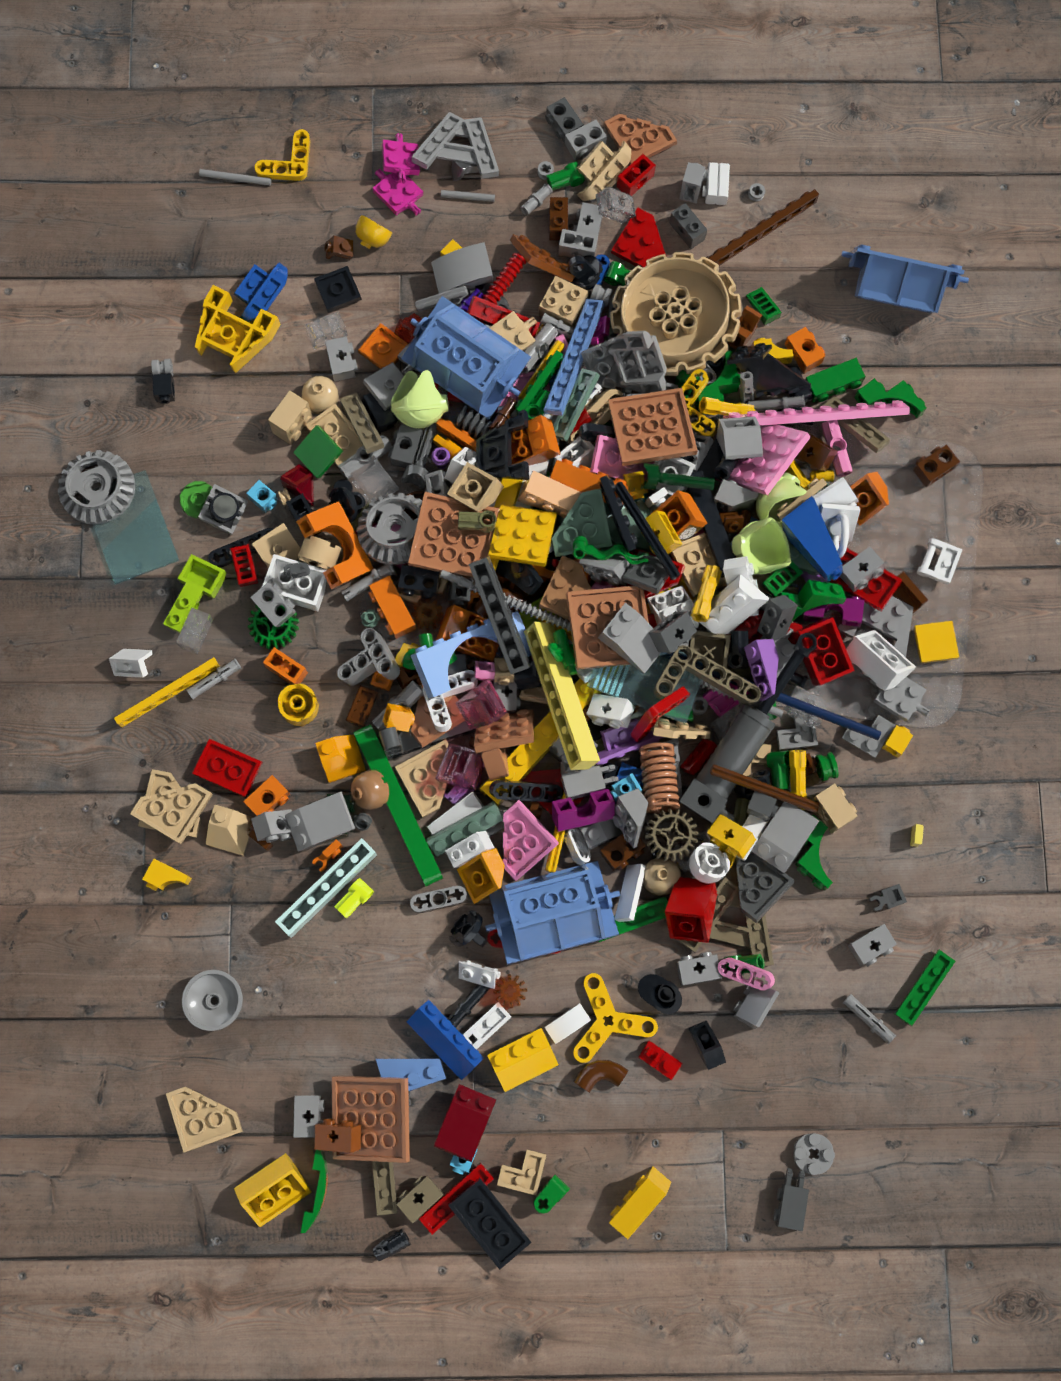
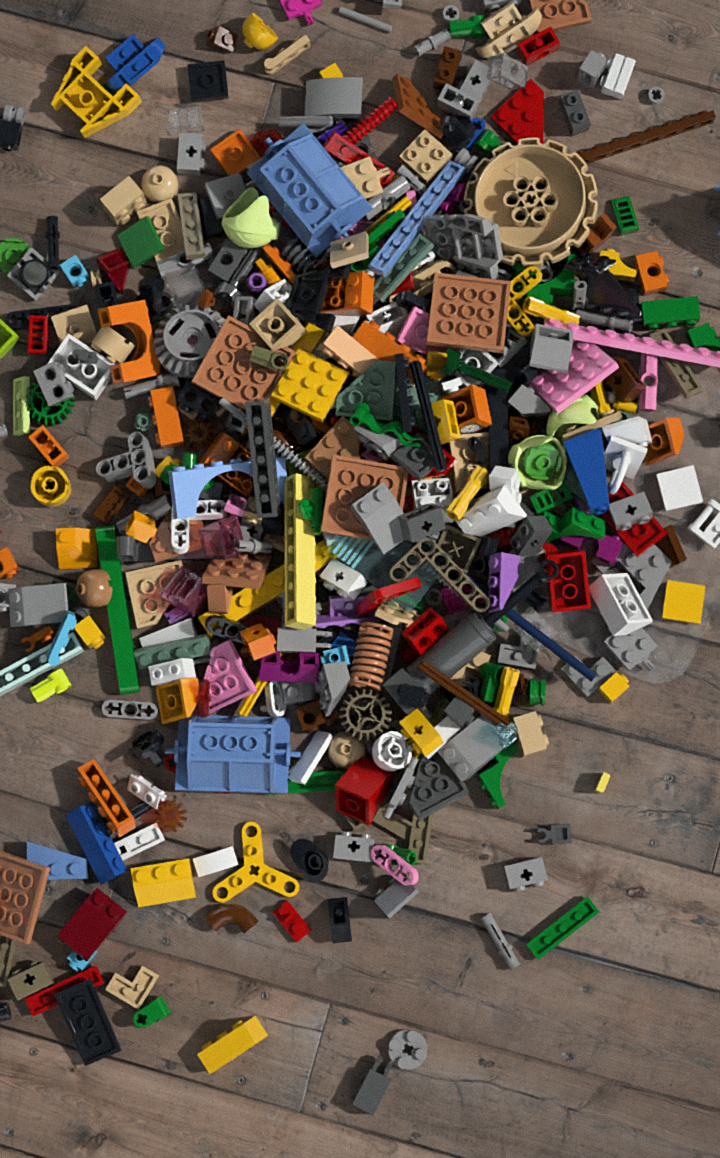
camera: 20 degrees right, 5 degrees up
(231, 469) = (52, 236): none -> black pin
(246, 638) = (21, 416): none -> yellowish green tile
(353, 846) = (61, 639): none -> medium azure plate
(378, 834) = (90, 633): none -> yellow brick
(398, 485) = (206, 299): none -> dark orange tile
(404, 246) = (285, 55): none -> tan plate
(442, 991) = (106, 797): none -> orange brick
(508, 866) = (203, 698): none -> clear red axle
(512, 704) = (252, 546): none -> light grey pin
(522, 399) = (349, 250): none -> tan plate
(547, 793) = (258, 641): none -> orange brick
(702, 550) = (478, 449): none -> black arm
(705, 737) = (425, 631): none -> red brick
(715, 802) = (413, 696): none -> black brick
(729, 904) = (399, 796): none -> light grey plate
(765, 545) = (542, 461): none -> bright green tile
(814, 813) = (506, 734): none -> clear light blue tile
(897, 537) = (679, 488): none -> white tile

